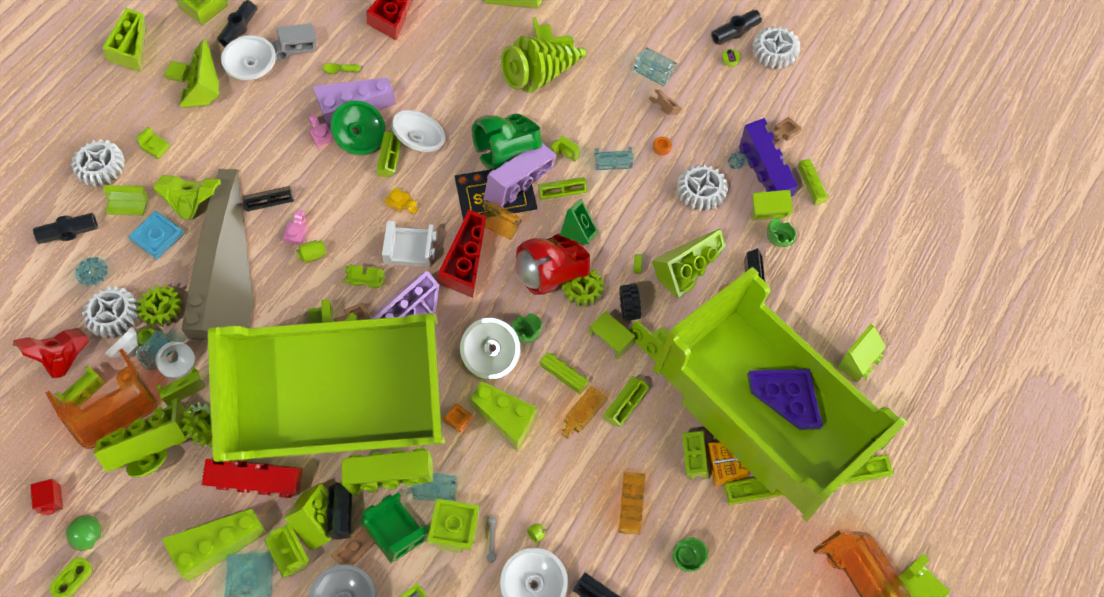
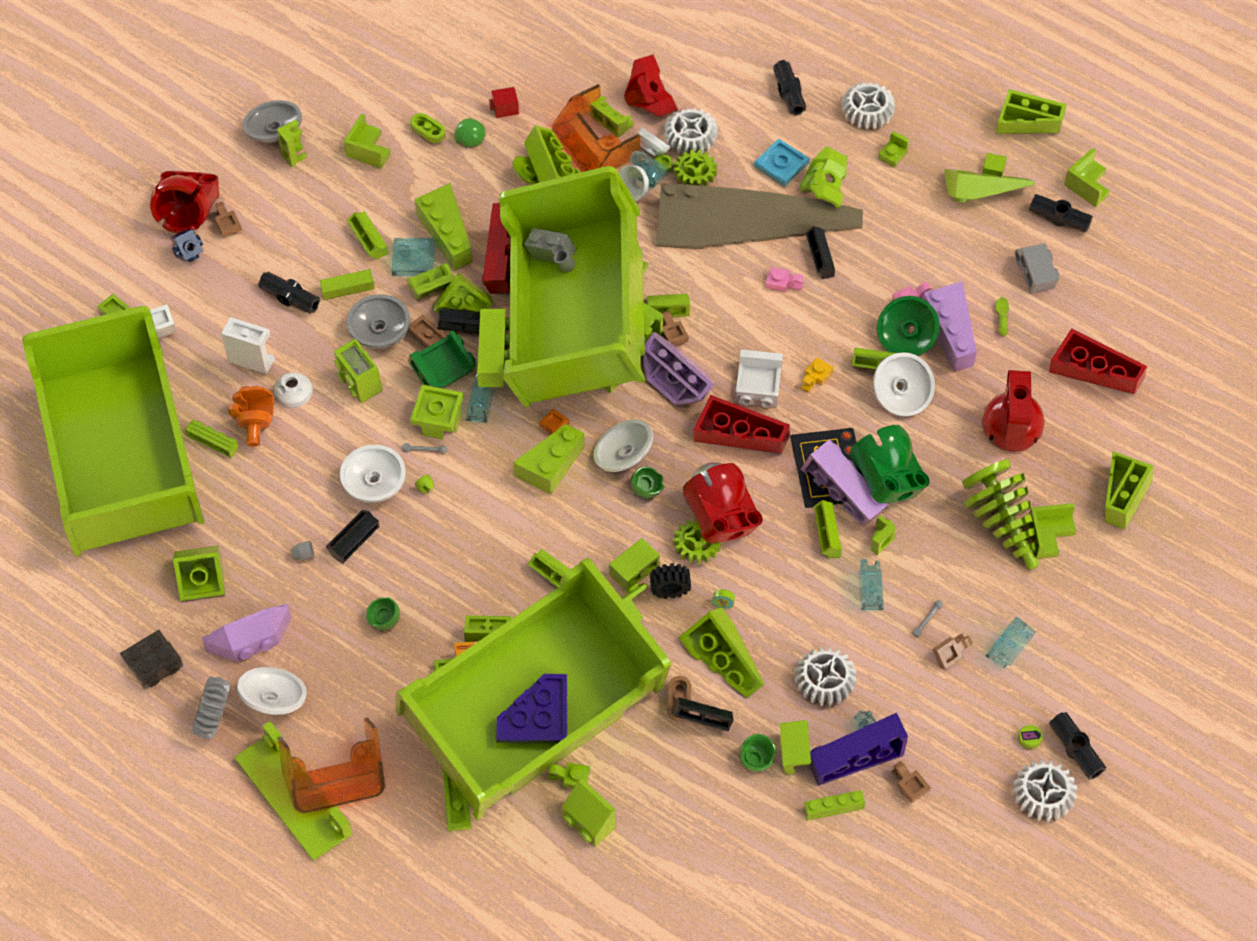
camera: 95 degrees right, 5 degrees down
(84, 269) = (744, 109): clear light blue gear -> none
(125, 200) = (821, 133): lime panel -> none
(248, 57) = (1009, 216): white dish -> none
(265, 420) = (552, 248): none -> light grey hinge
(311, 251) = (754, 292): lime brick -> none
(371, 278) = (718, 338): lime hinge -> none
(448, 52) = (1014, 415): none -> red piece
(500, 220) = (788, 464): clear yellow panel -> none
(562, 372) = (595, 518): lime piece -> none
(579, 224) = (771, 536): green slope -> none
(583, 411) = (549, 533): clear yellow hinge -> none
(631, 503) = (444, 568): clear yellow beam -> none
(648, 128) = (917, 632): none -> light grey hinge
(662, 146) = (891, 643): orange tile -> none

